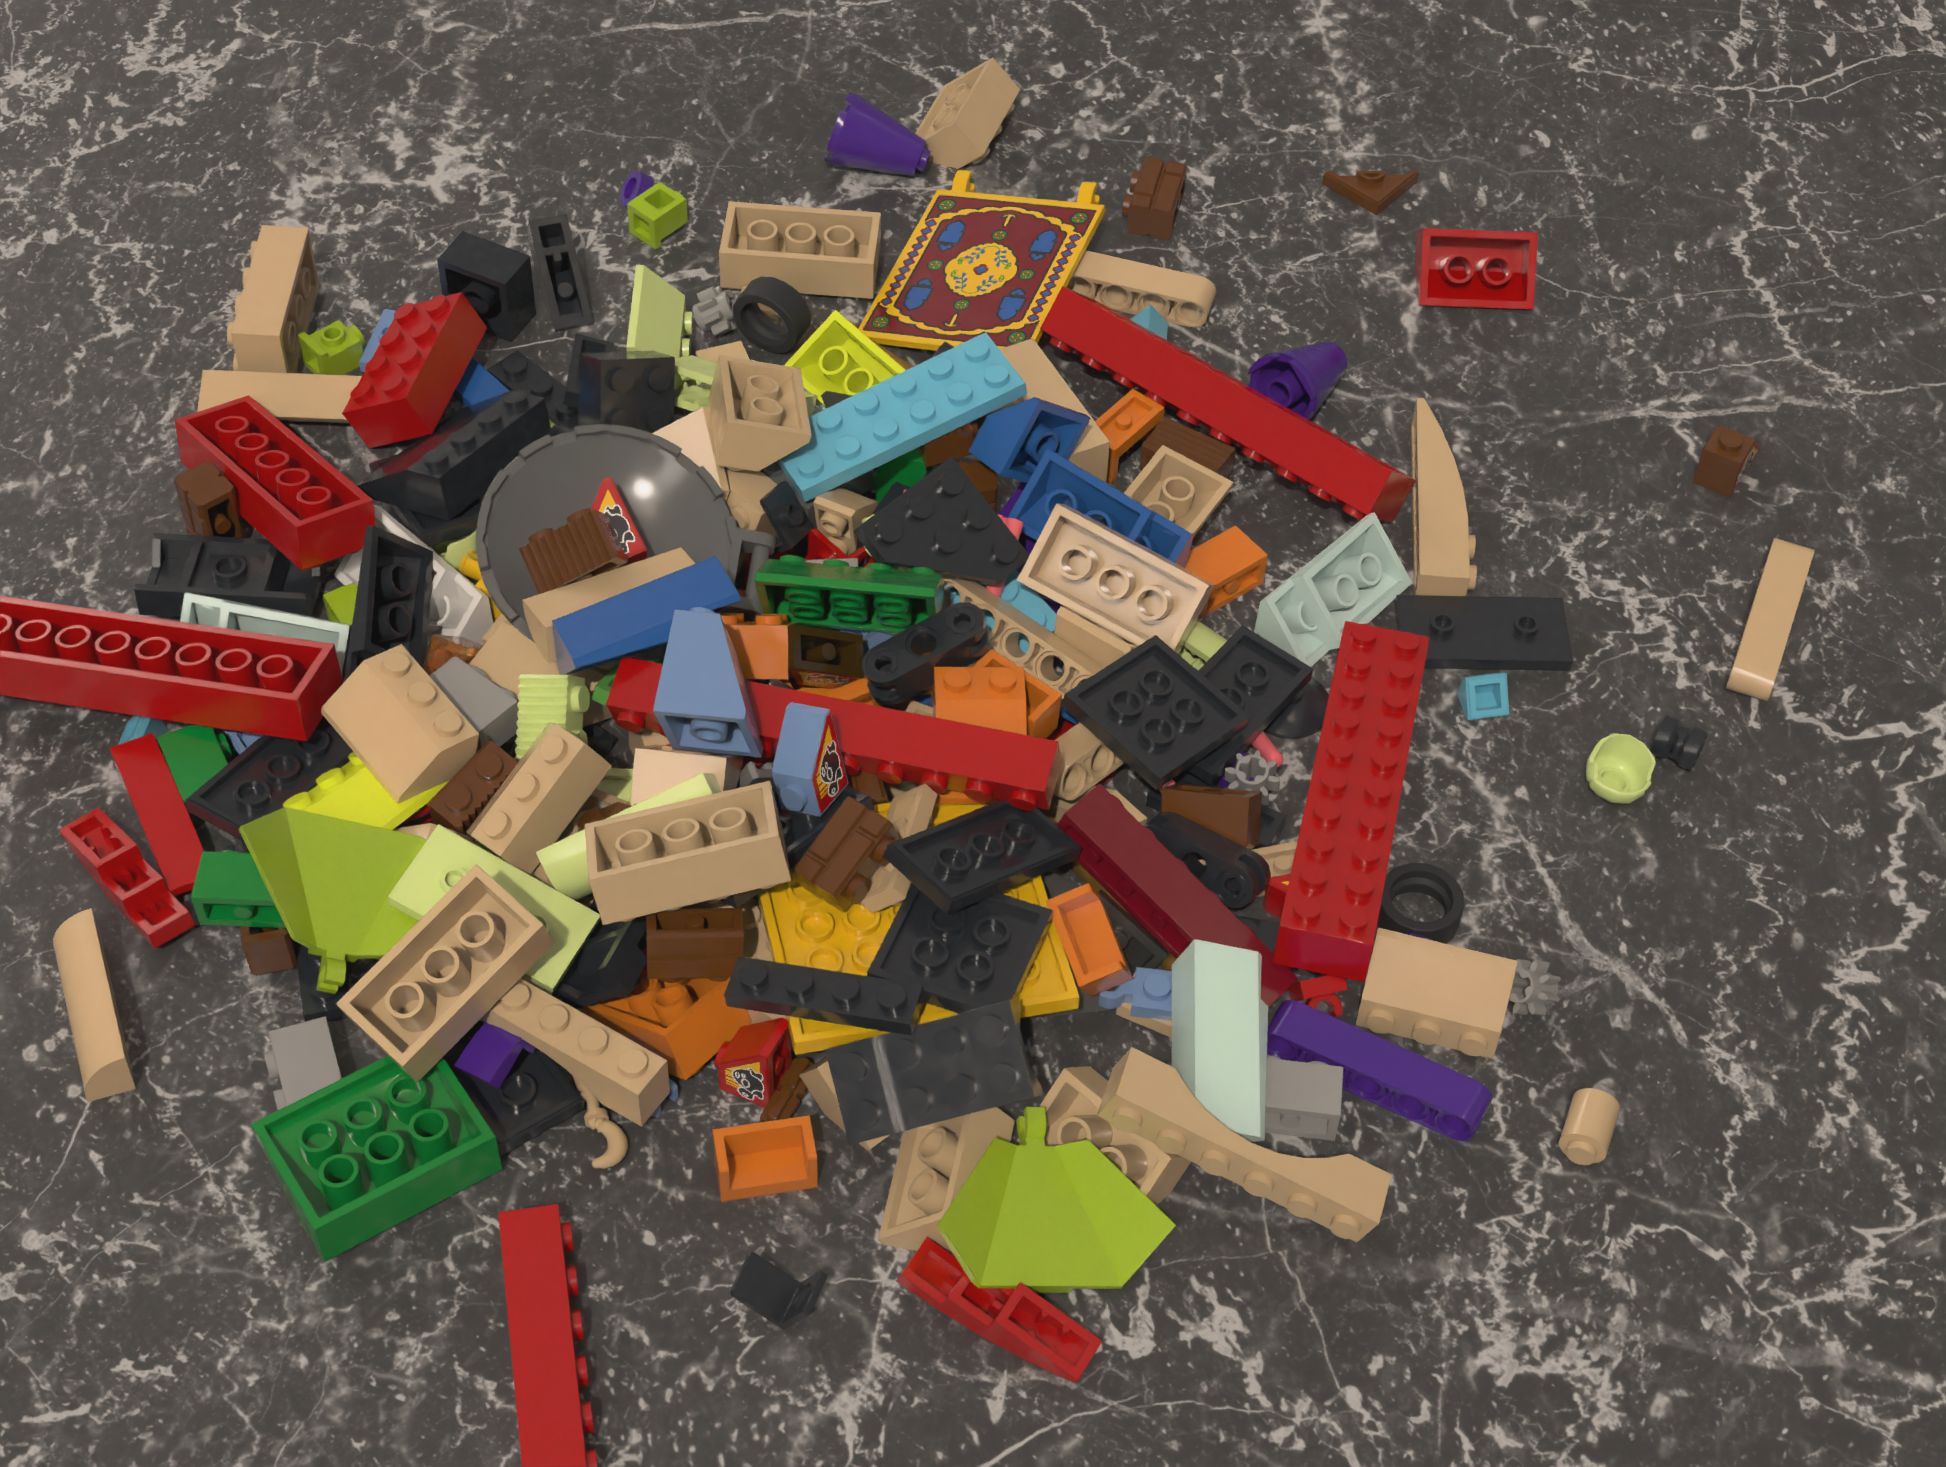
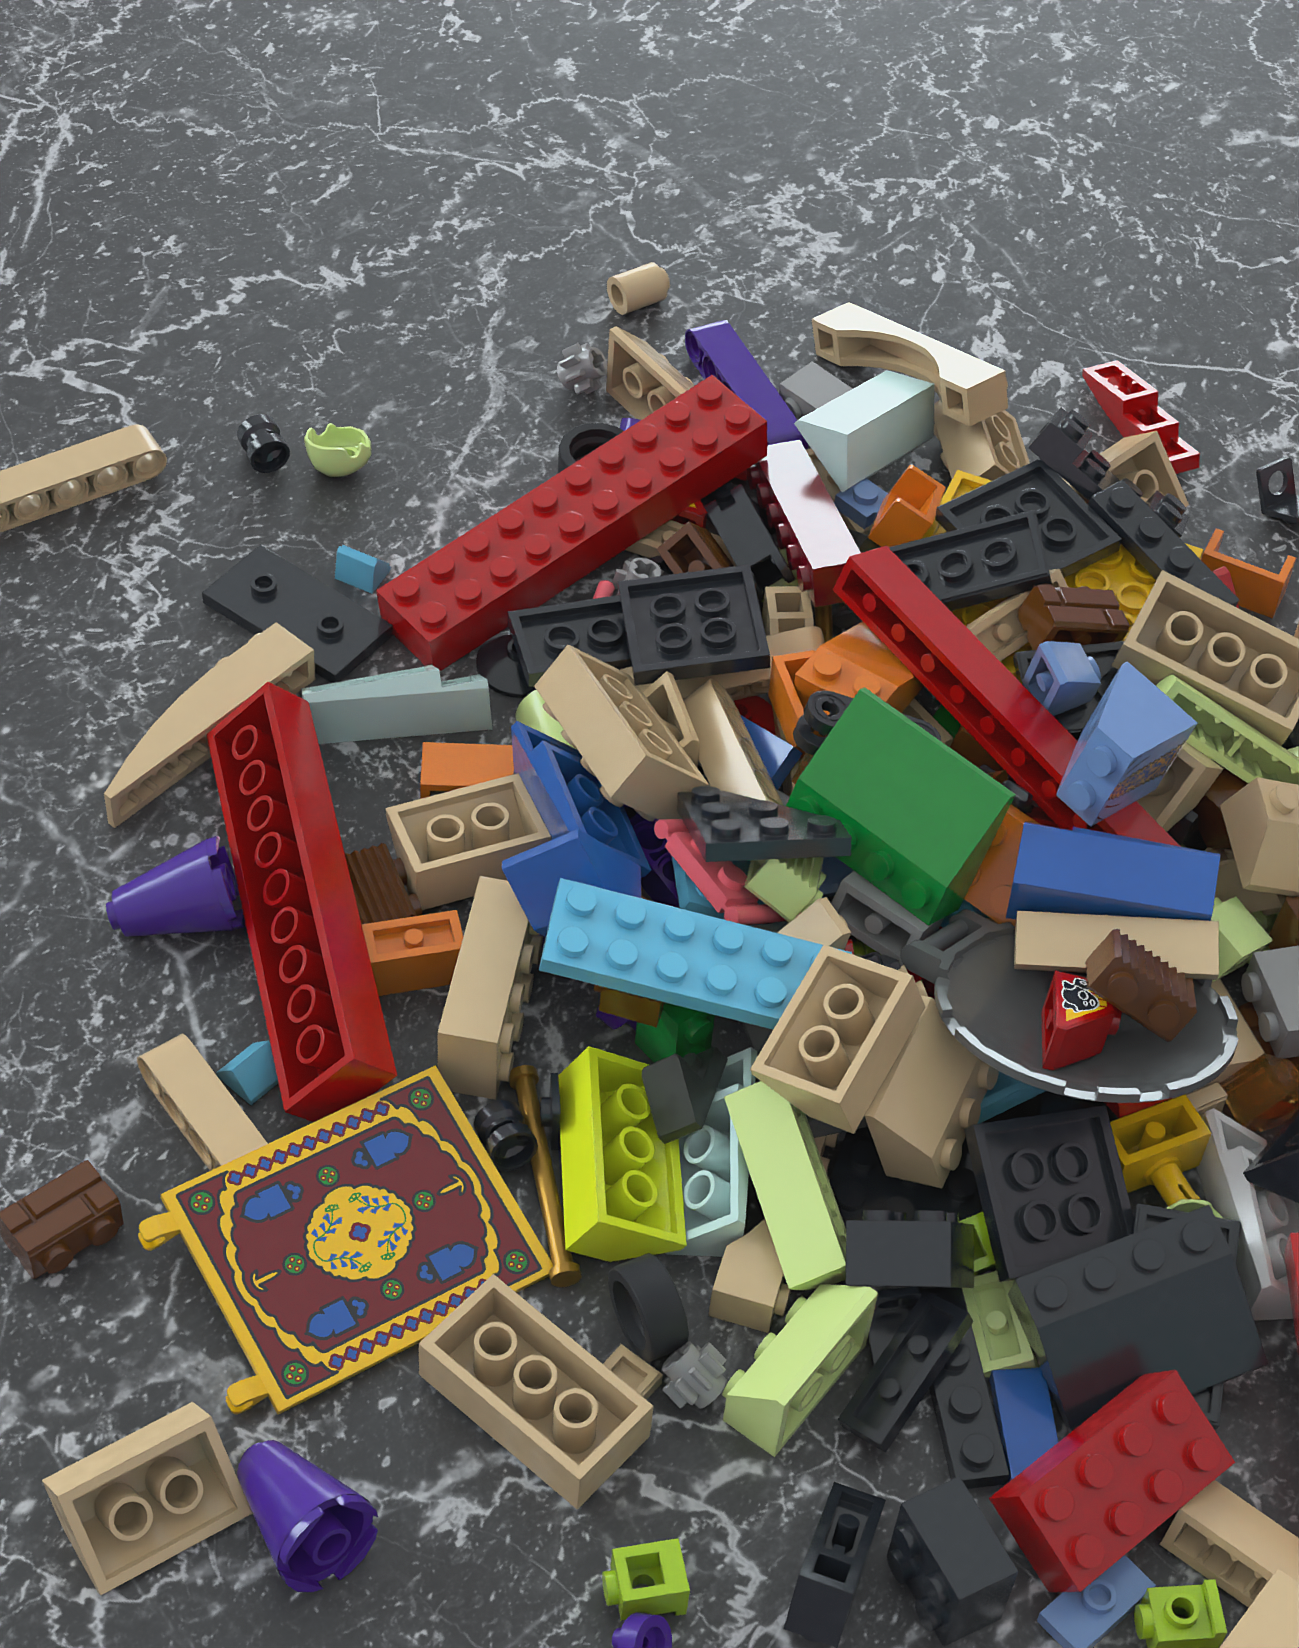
camera: 145 degrees left, 0 degrees up
(1050, 1216) = (1031, 411): lime panel -> none

